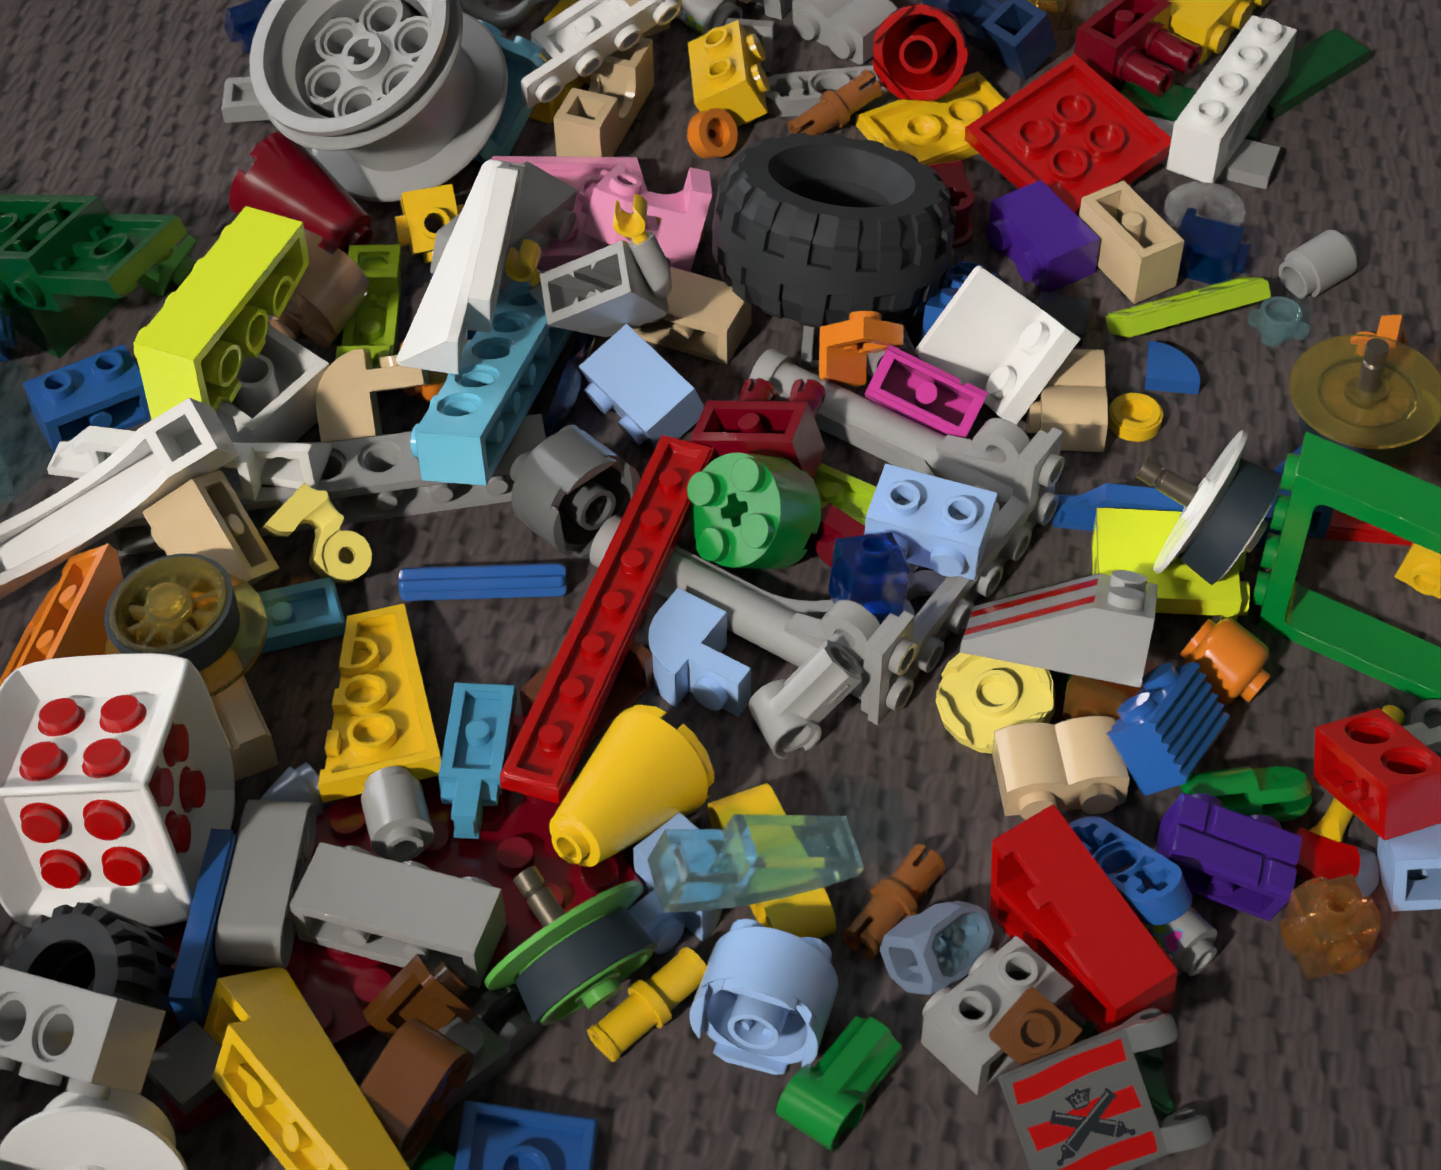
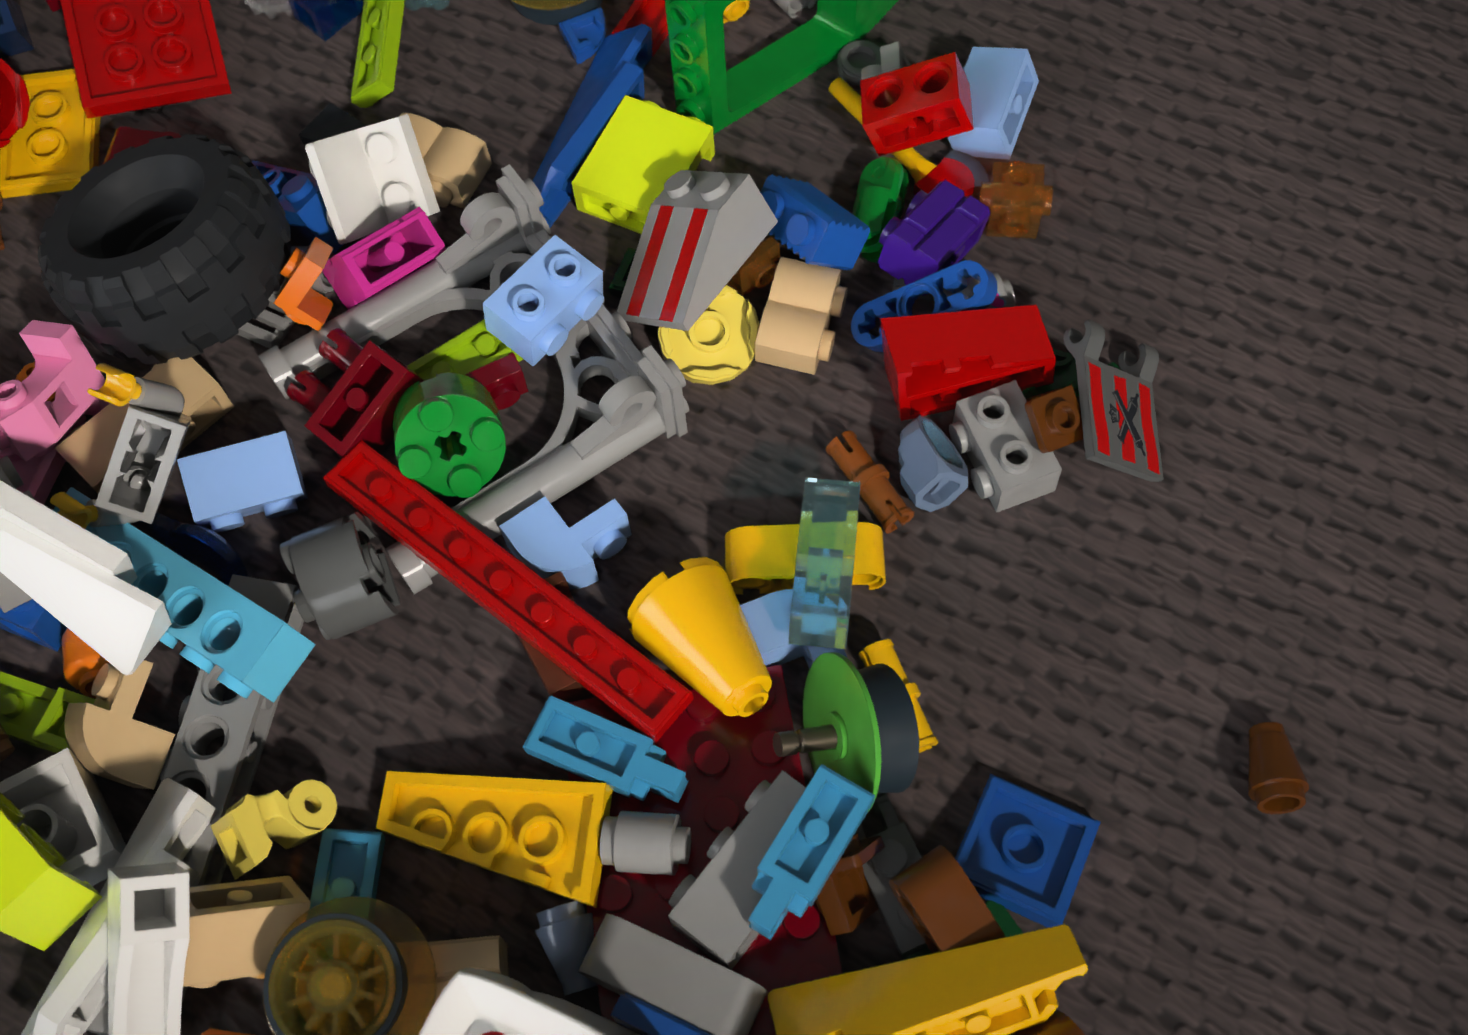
camera: 65 degrees left, 15 degrees up
(417, 923) = (807, 848): none -> dark azure hinge
(482, 582) = (387, 696): blue axle -> none
(765, 997) = (942, 601): light blue brick -> none
(792, 708) = (659, 480): light grey piece -> none
(834, 1092) = (1028, 587): green piece -> none
(871, 573) = (581, 367): clear blue brick -> none
(1042, 237) = (242, 105): dark purple brick -> none
(1135, 243) = (291, 46): tan brick -> none
(1135, 417) = (472, 119): yellow tile -> none
(1170, 370) = (433, 82): blue tile -> none
(1219, 514) = (651, 93): piece -> none
(1229, 659) = (752, 154): orange head -> none

